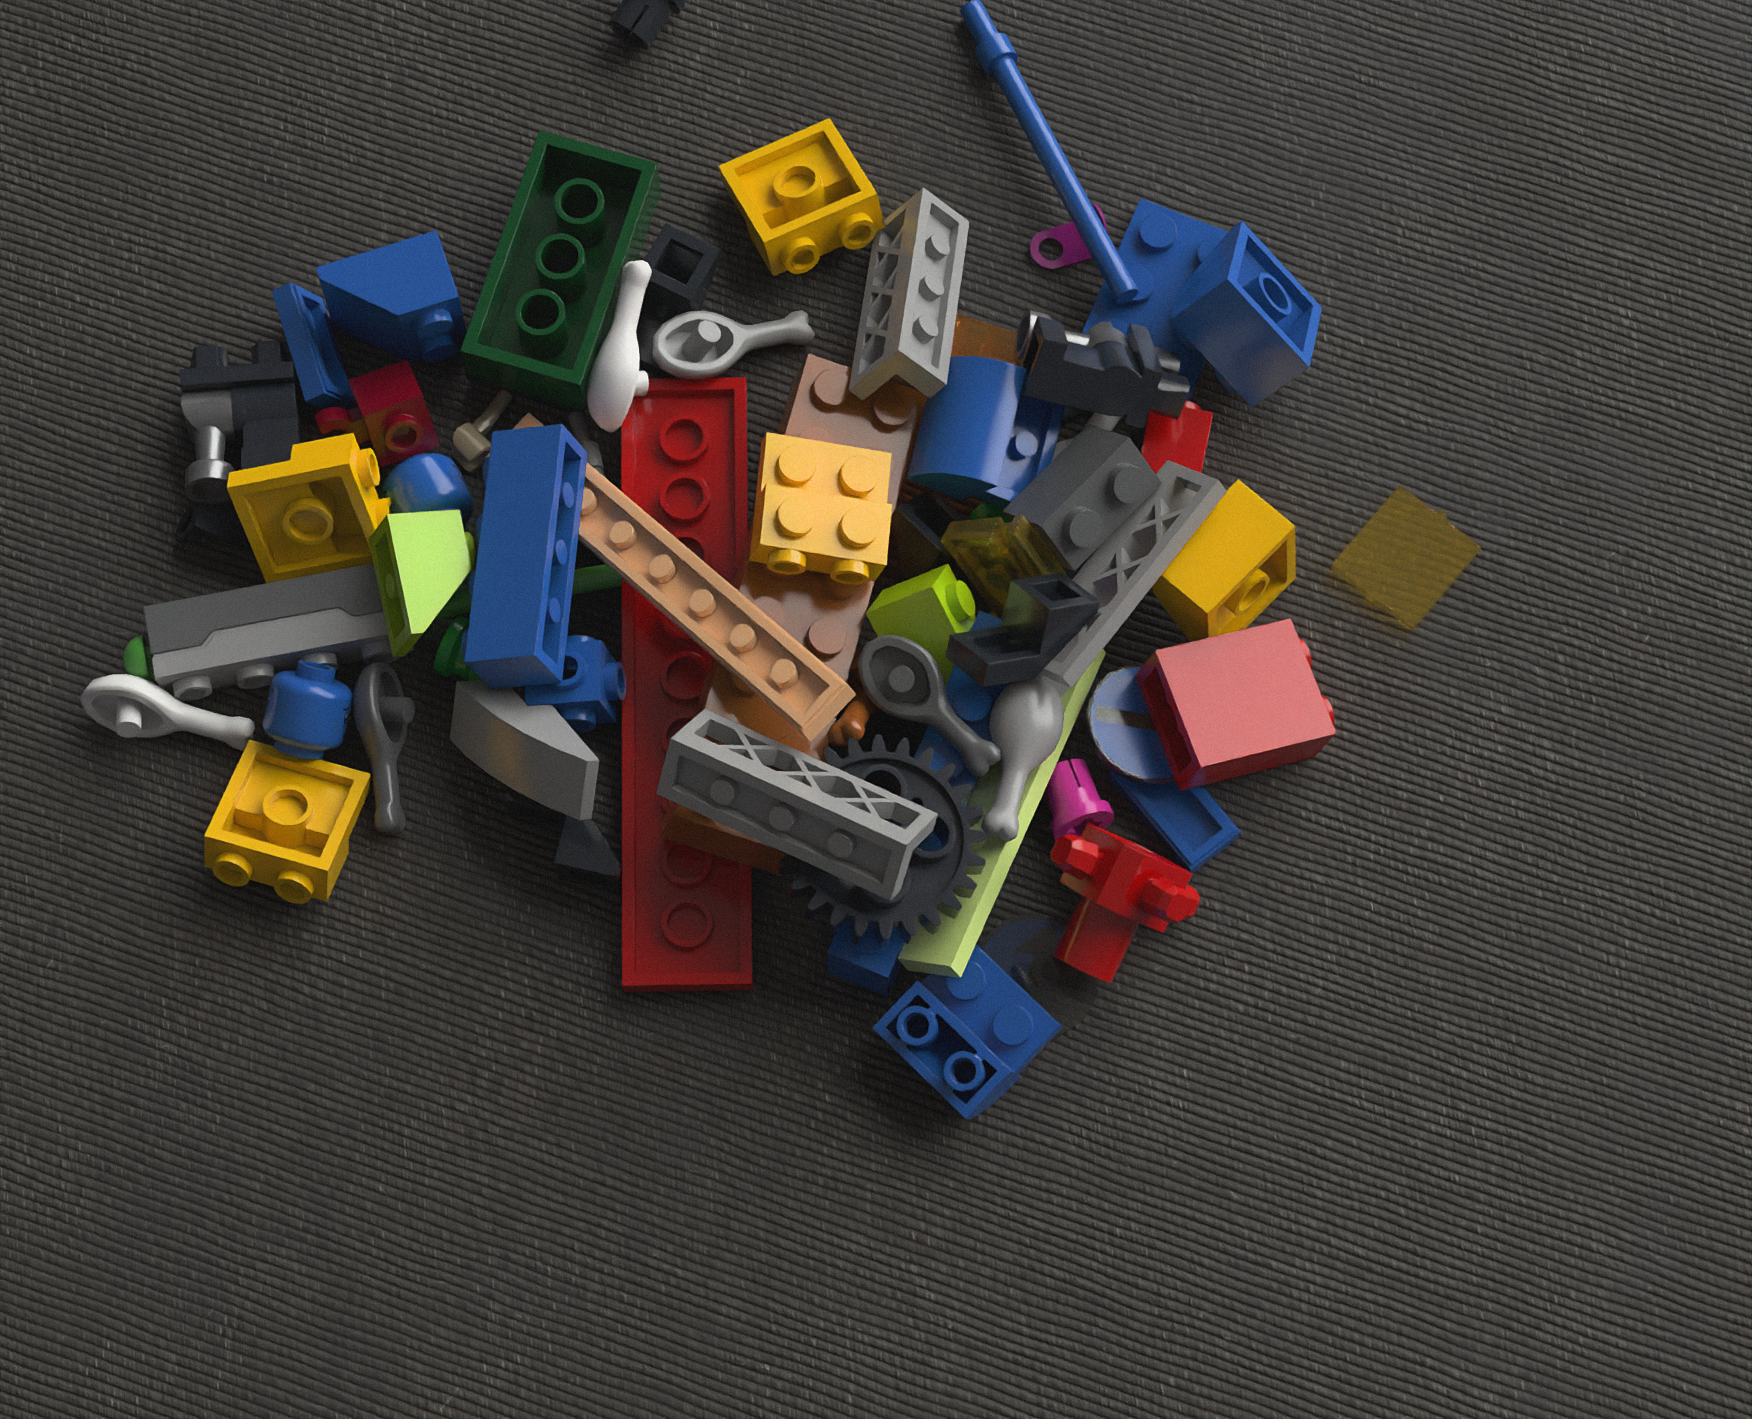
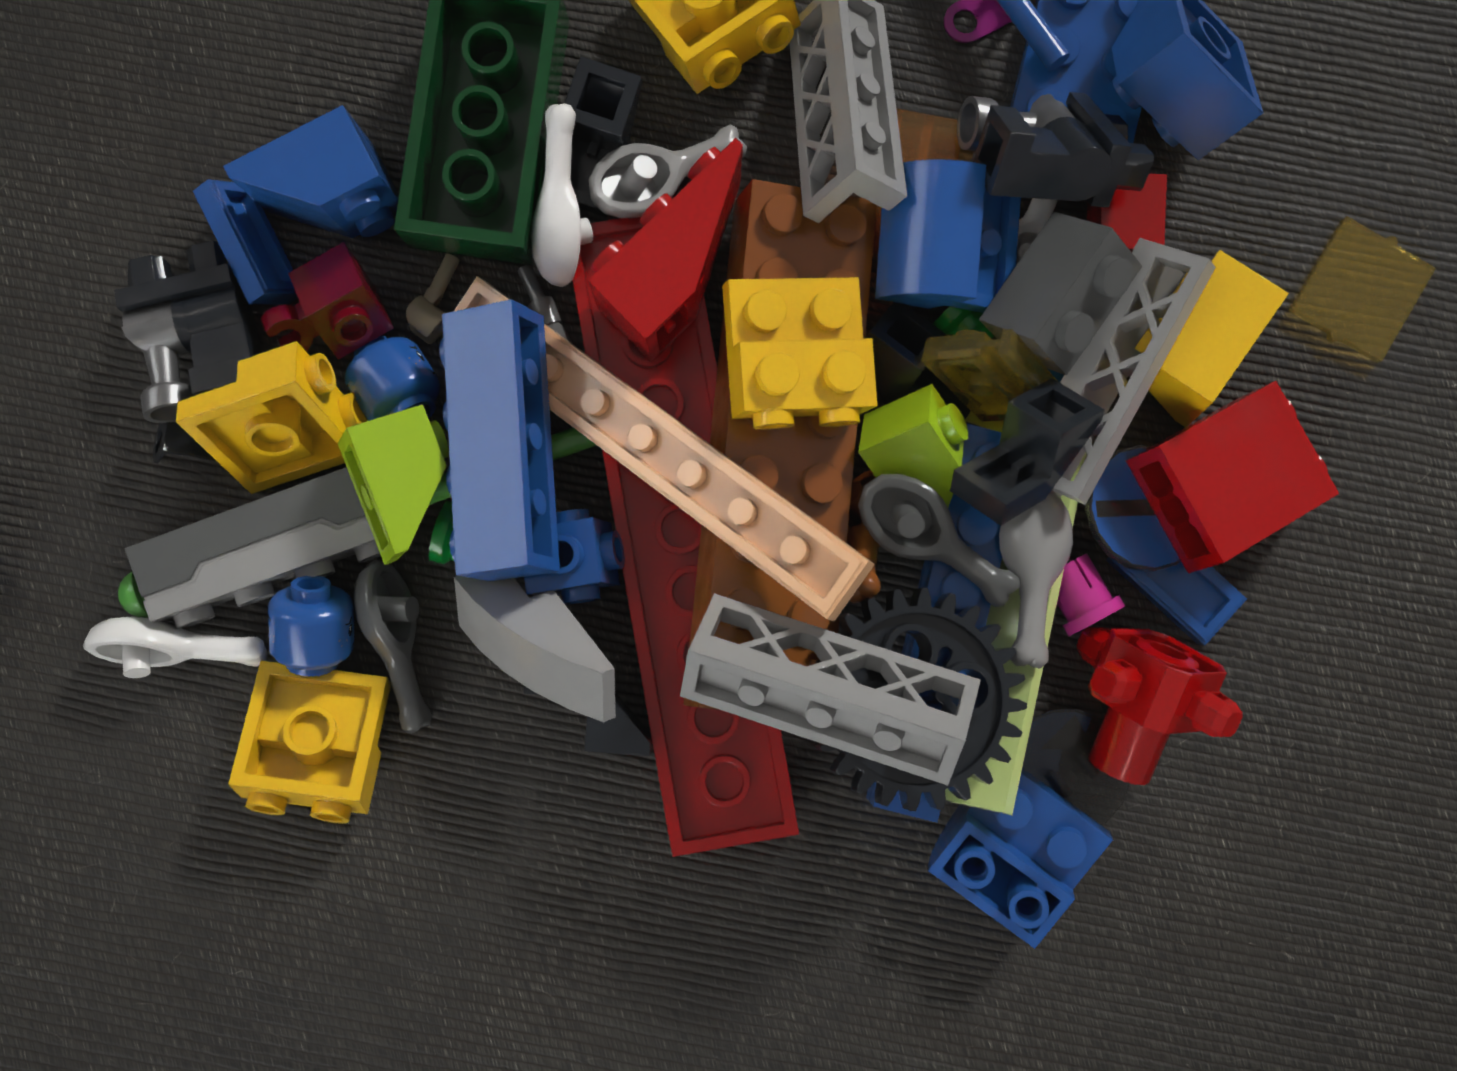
camera: 10 degrees left, 15 degrees up
(709, 424) = (661, 274): none -> red slope

